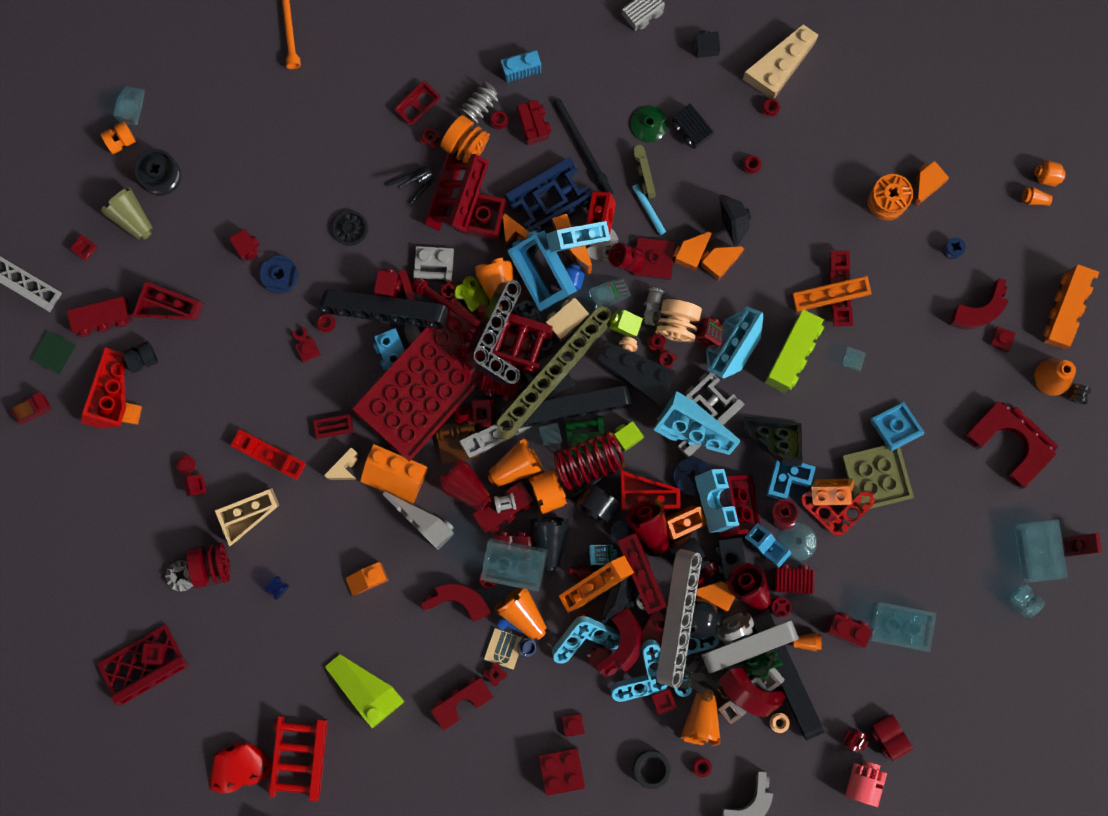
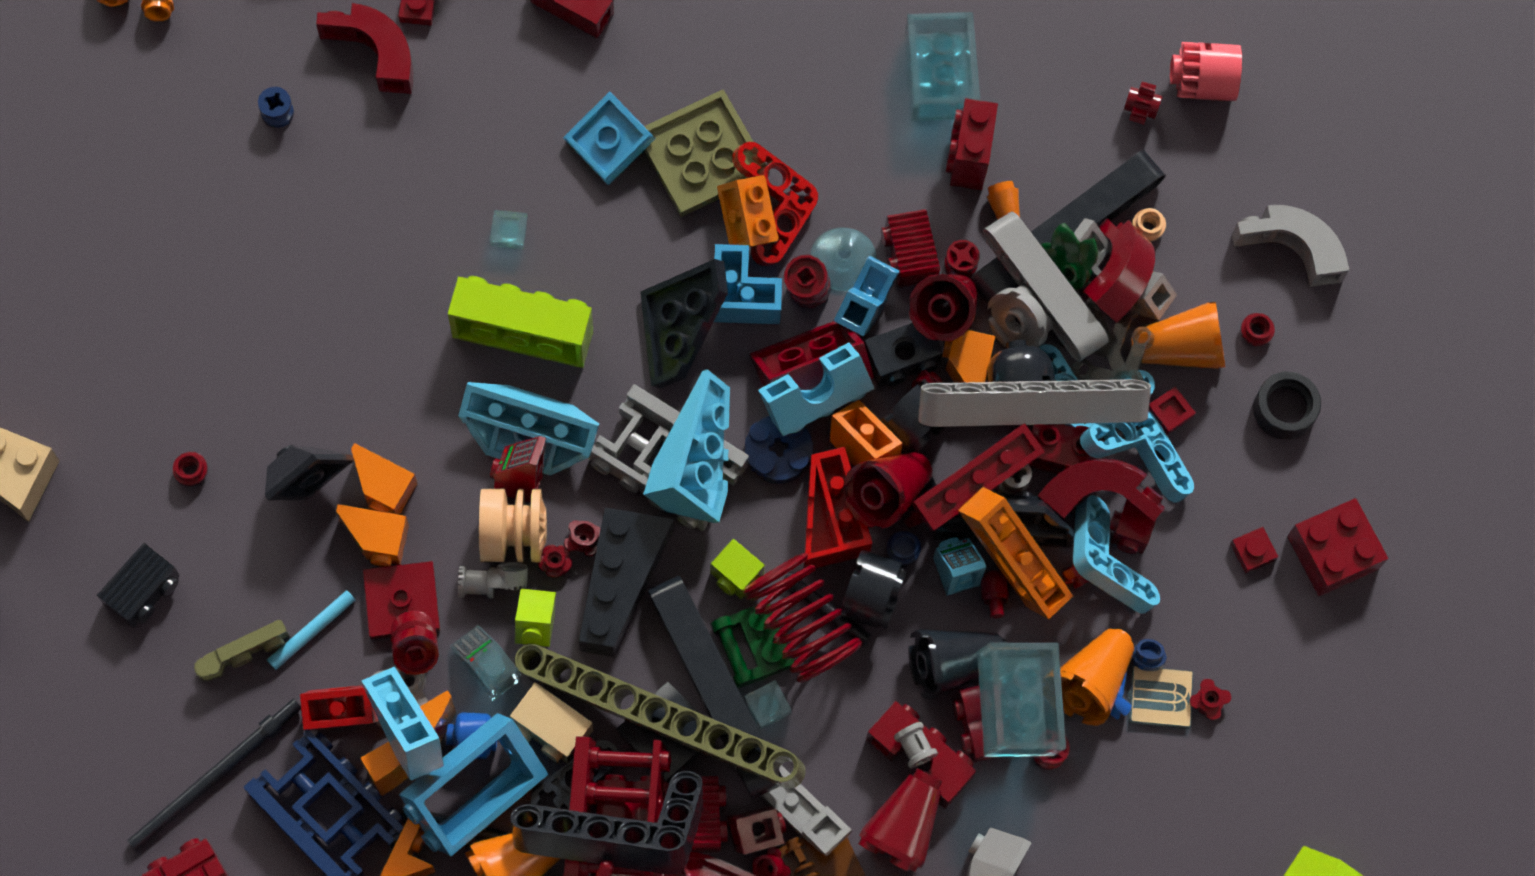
camera: 110 degrees left, 10 degrees down
(446, 711) = (1296, 765): dark red arch -> none
(453, 592) = (1091, 793): dark red arch -> none
(515, 465) = (841, 750): orange cone -> none
(548, 491) = (873, 680): orange brick -> none
(628, 344) = (572, 607): light nougat plate -> none
(647, 132) = (156, 680): dark green dish -> none
(771, 103) = (75, 450): dark red plate -> none
(832, 293) = (401, 285): orange tile -> none
(839, 271) = (389, 275): dark red slope -> none
(888, 207) = (214, 237): orange wheel -> none
(891, 737) = (1121, 51): dark red brick -> none
(928, 181) = (165, 169): orange slope -> none

